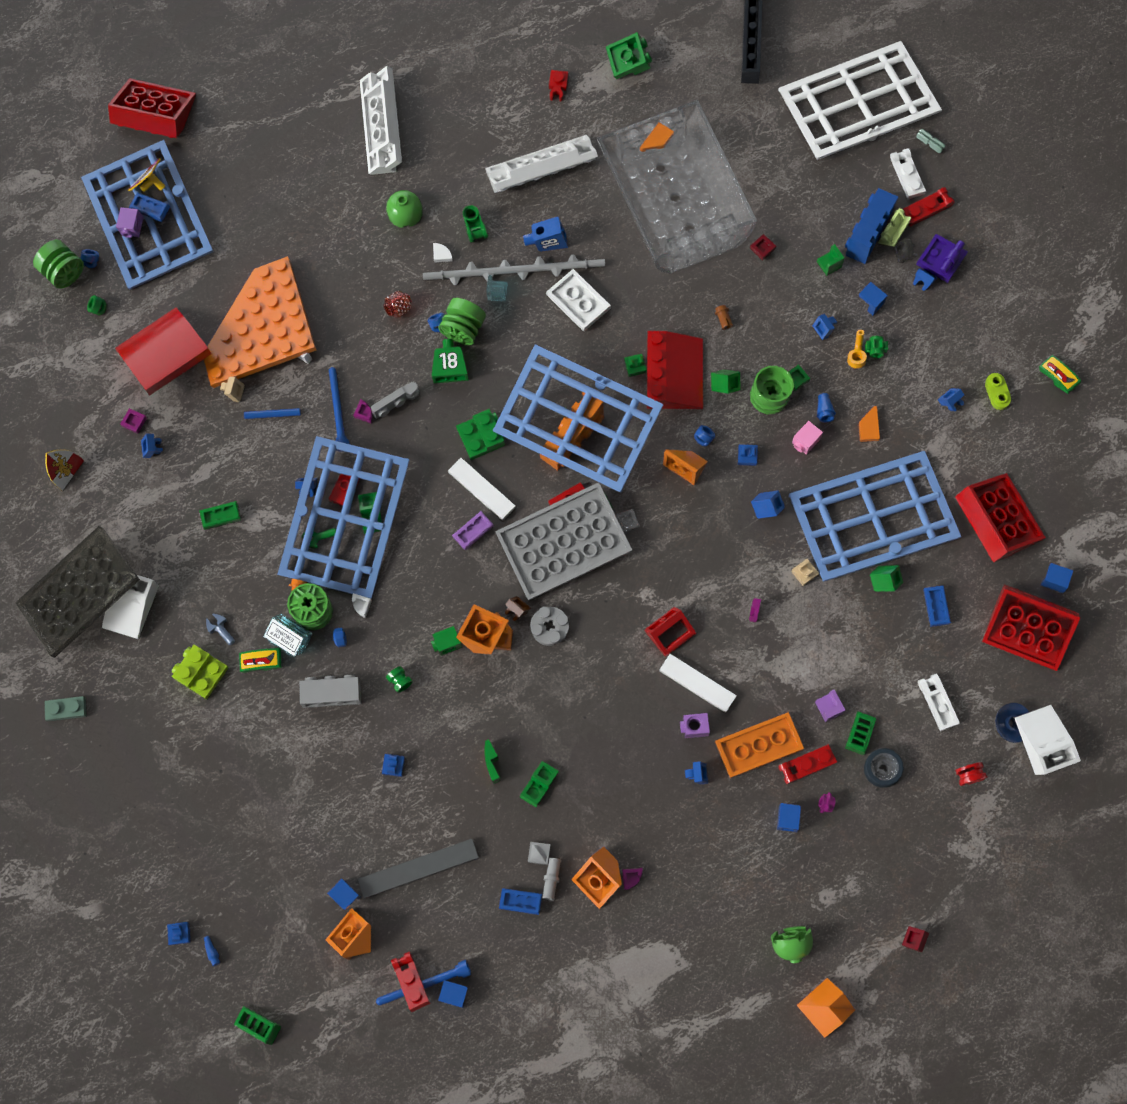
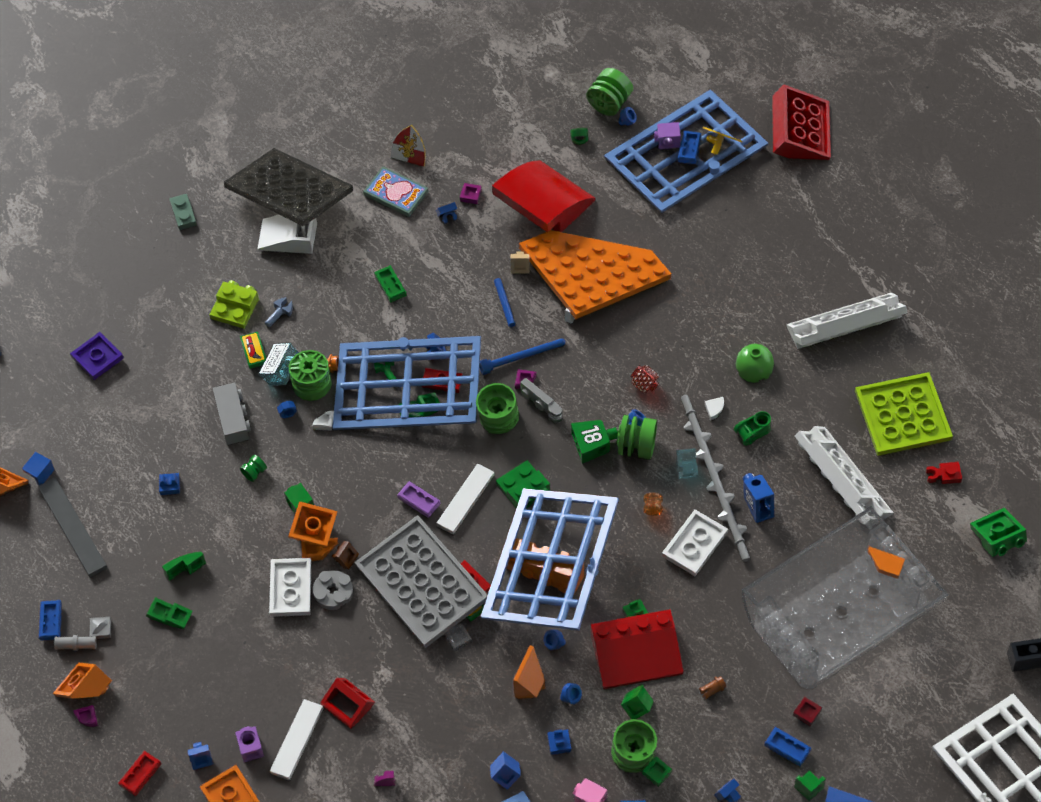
camera: 75 degrees right, 15 degrees down
(108, 491) = (396, 191): none -> tile
(222, 819) = (97, 355): none -> dark purple plate
(393, 429) = (497, 408): none -> bright green wheel
(491, 100) = (903, 413): none -> lime plate
(531, 325) = (653, 504): none -> clear orange wheel
(538, 664) = (290, 587): none -> white plate
(652, 440) = (554, 639): none -> blue tile
(703, 832) = (139, 773): none -> red plate
(792, 270) = (787, 746): none -> blue plate

